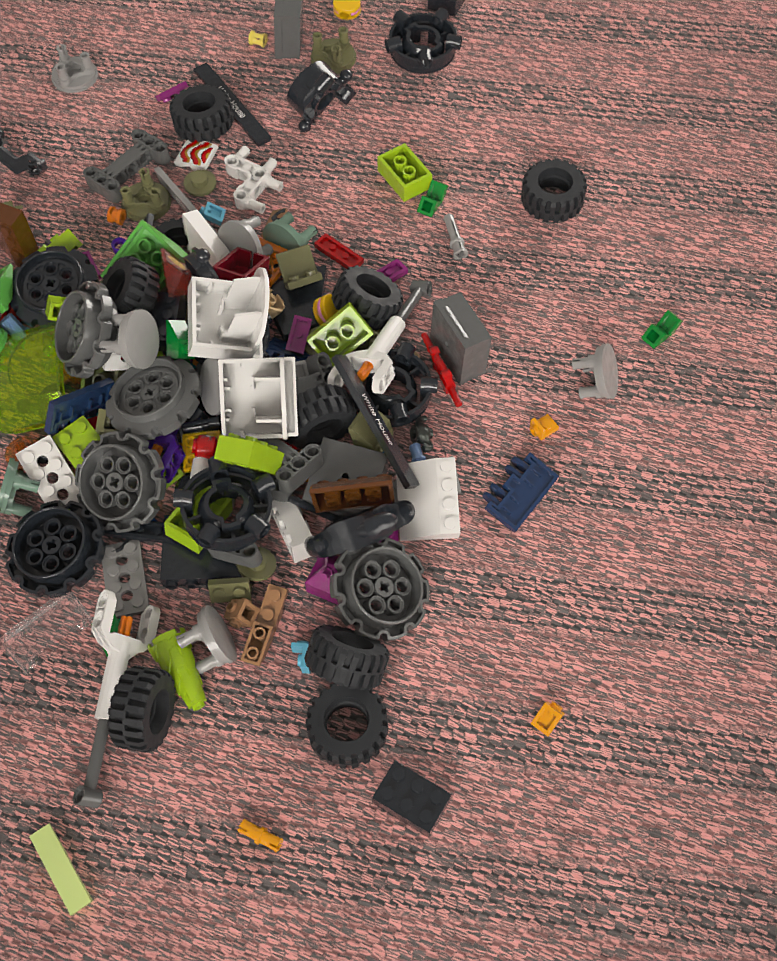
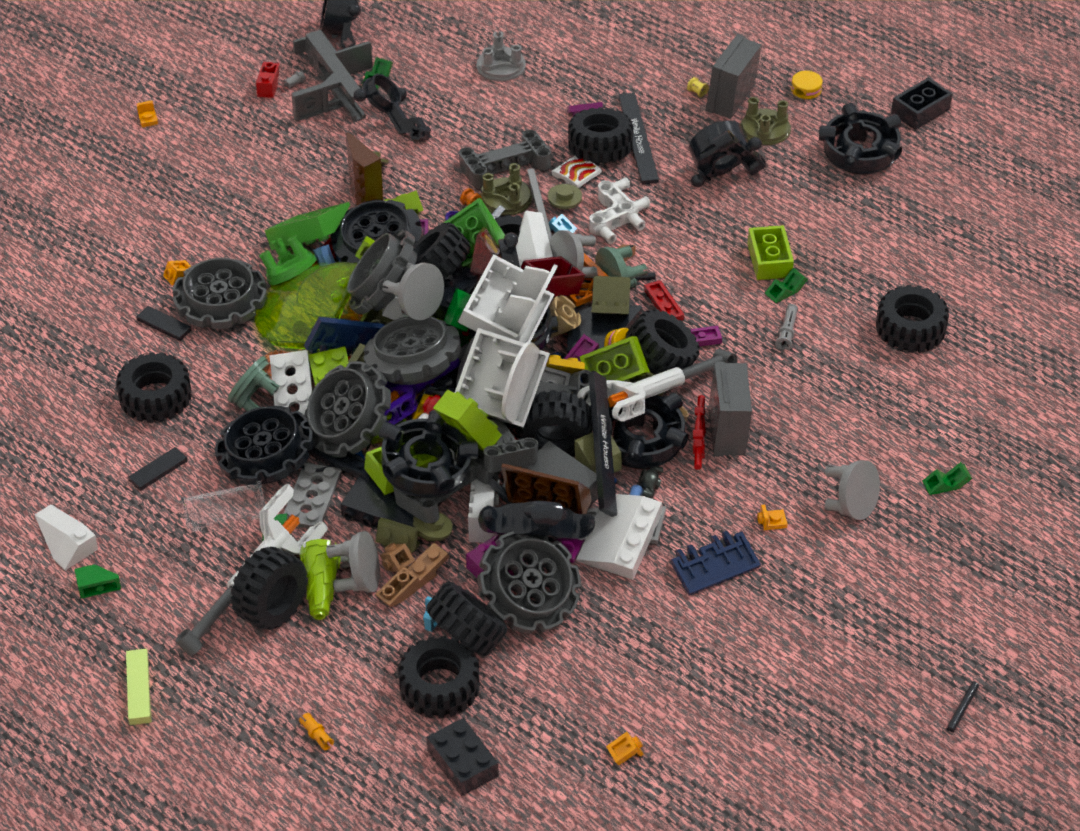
camera: 25 degrees right, 15 degrees down
(301, 353) = (567, 365): none -> yellow tile

